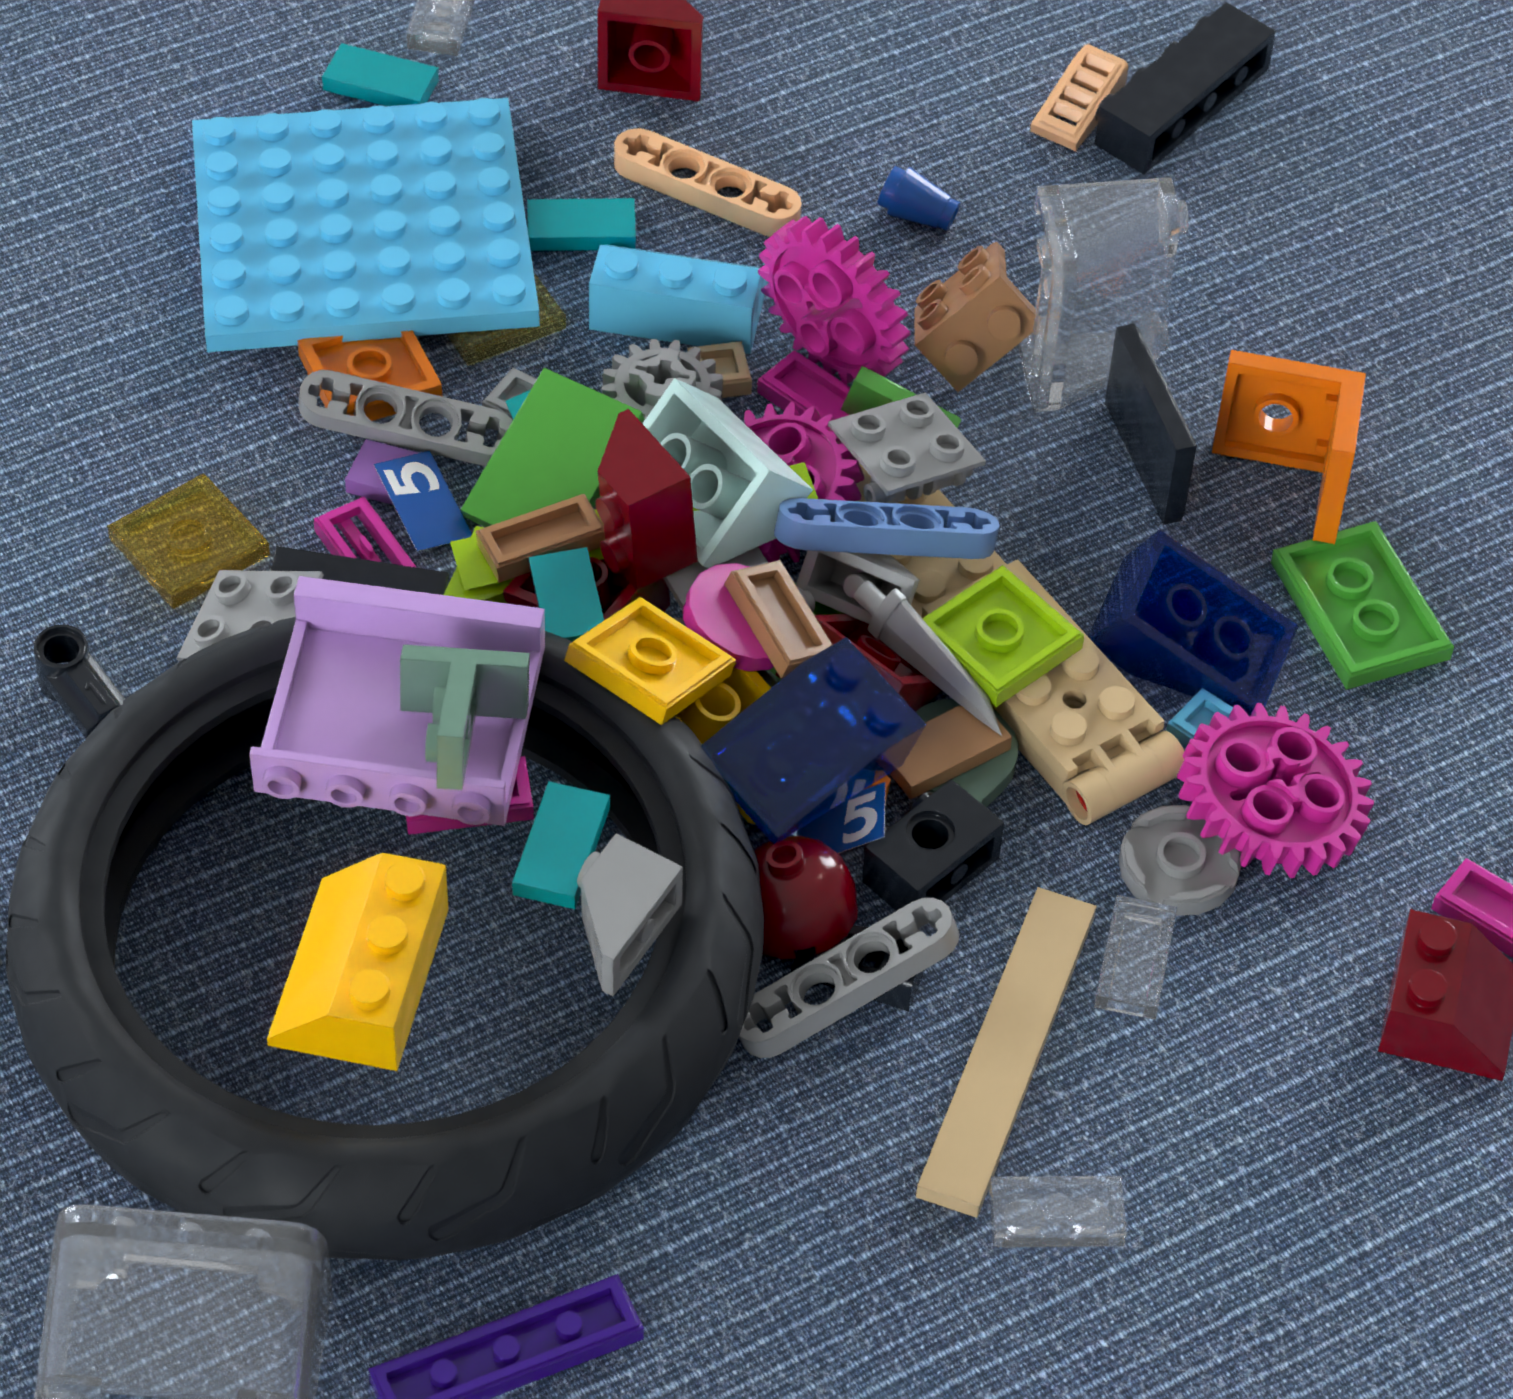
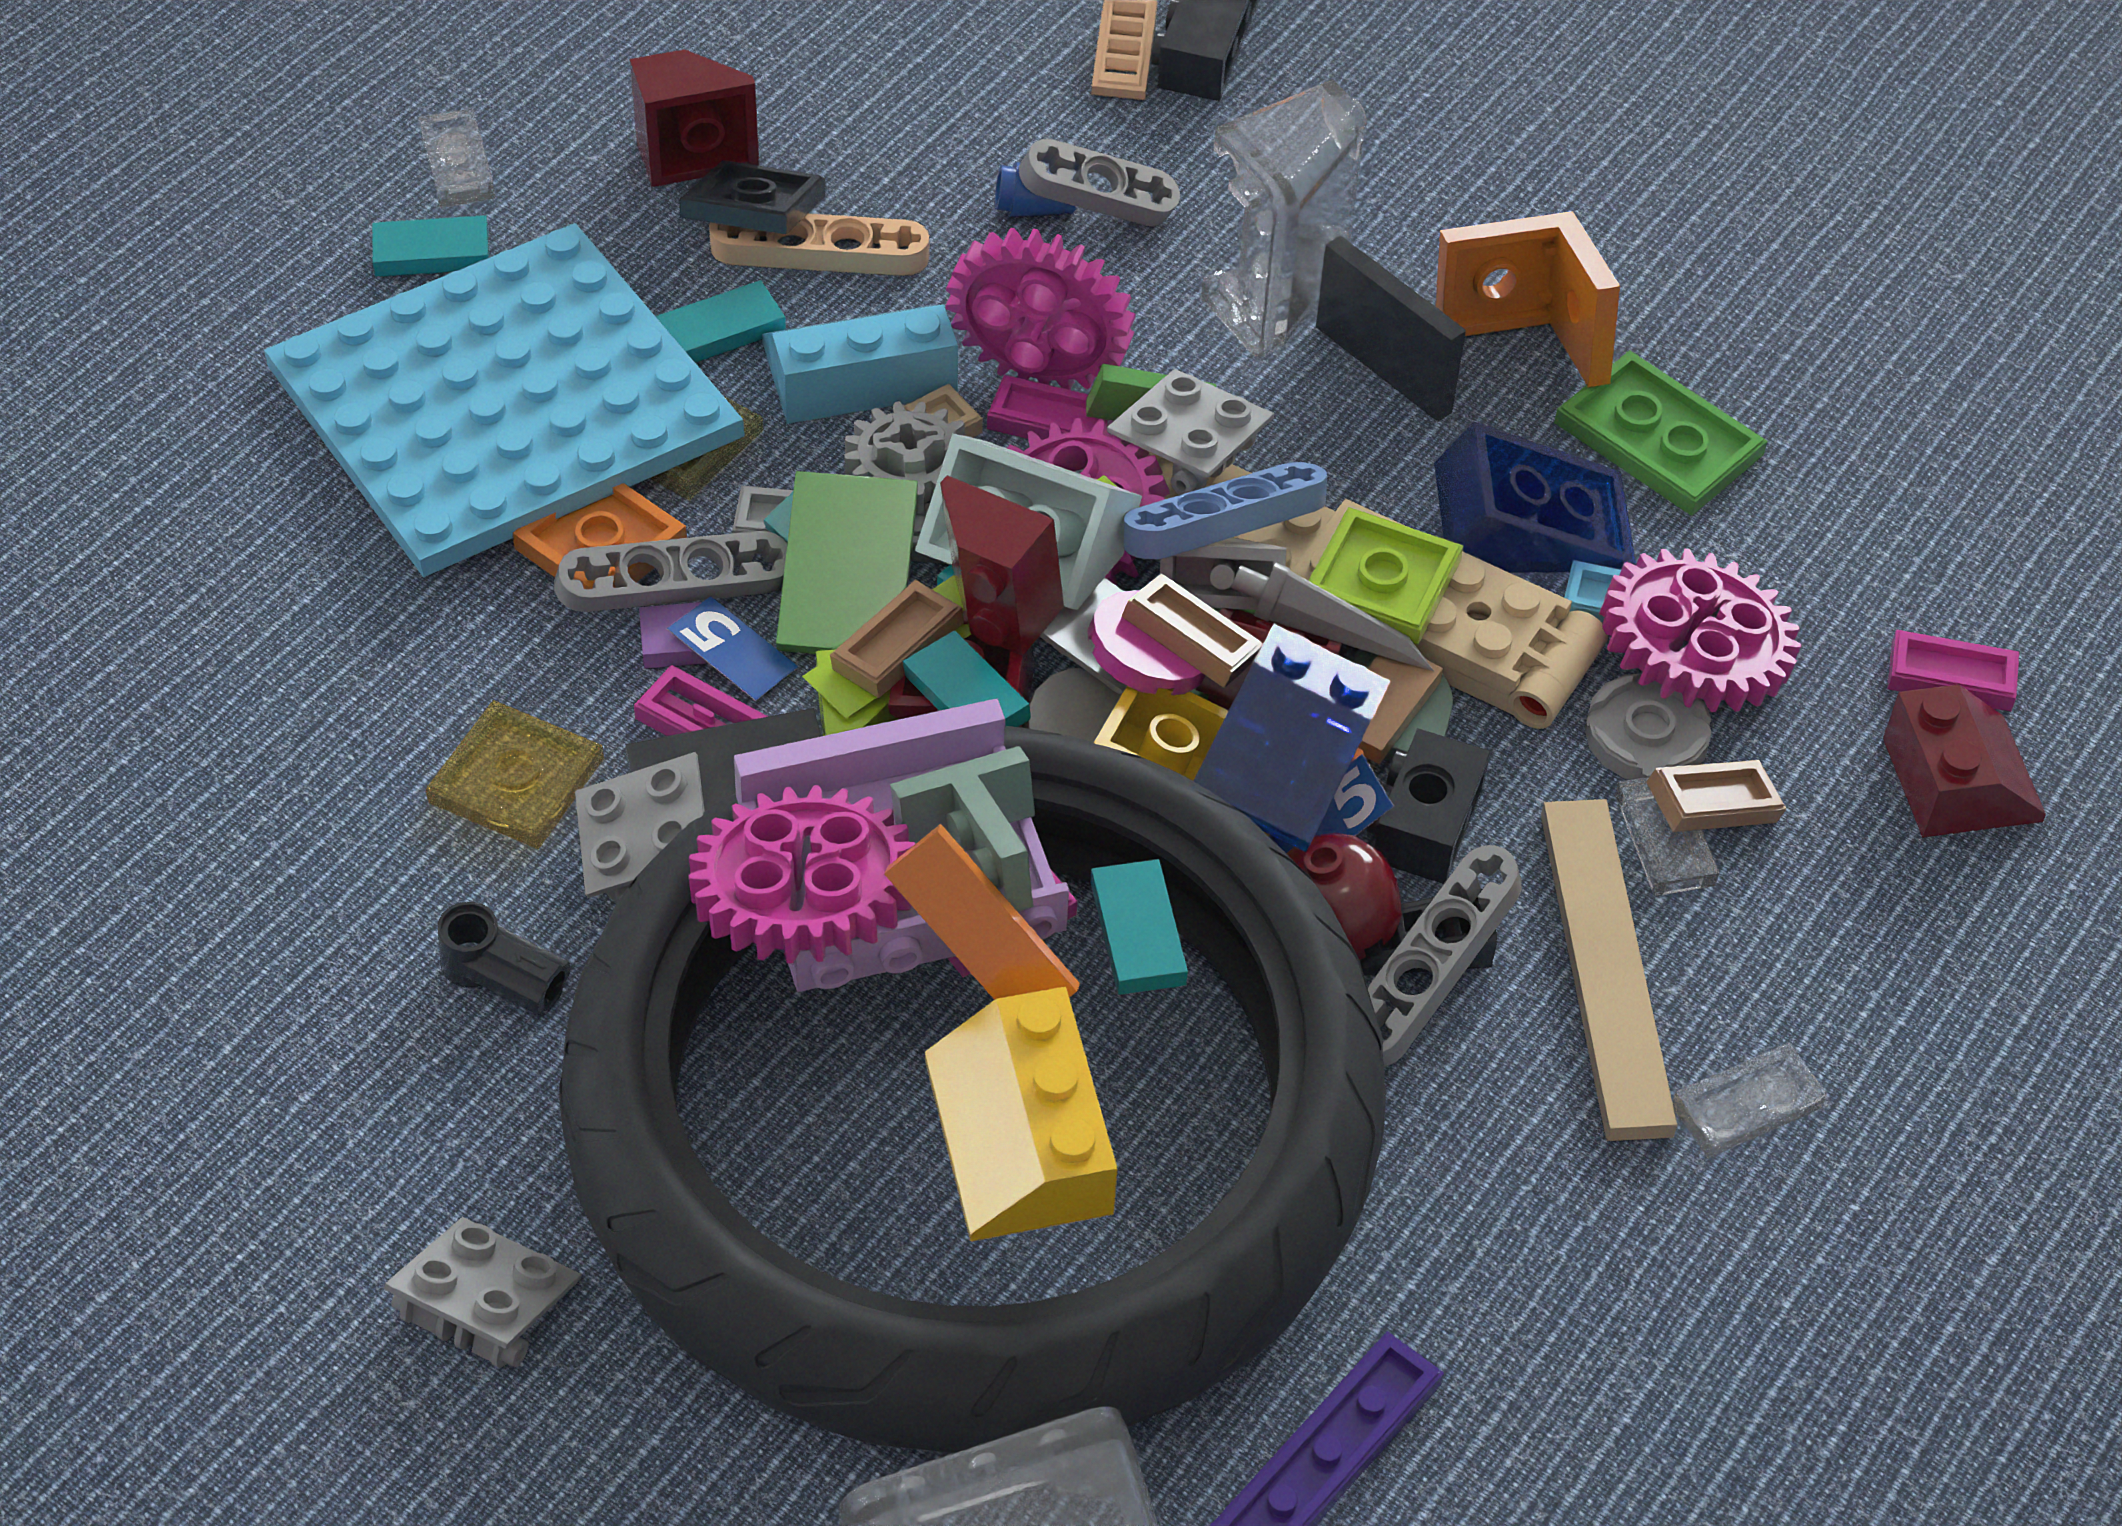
camera: 25 degrees left, 0 degrees up
(295, 693) = (754, 867): none -> dark pink gear
(405, 782) = (976, 919): none -> orange tile
(626, 905) = (1241, 962): light grey slope -> none
(650, 660) = (1102, 715): yellow tile -> none
(666, 124) = (753, 197): none -> black tile
(970, 187) = (1080, 193): none -> light grey beam
(972, 317) = (1171, 279): medium nougat bracket -> none
(1197, 940) = (1716, 795): none -> medium nougat tile

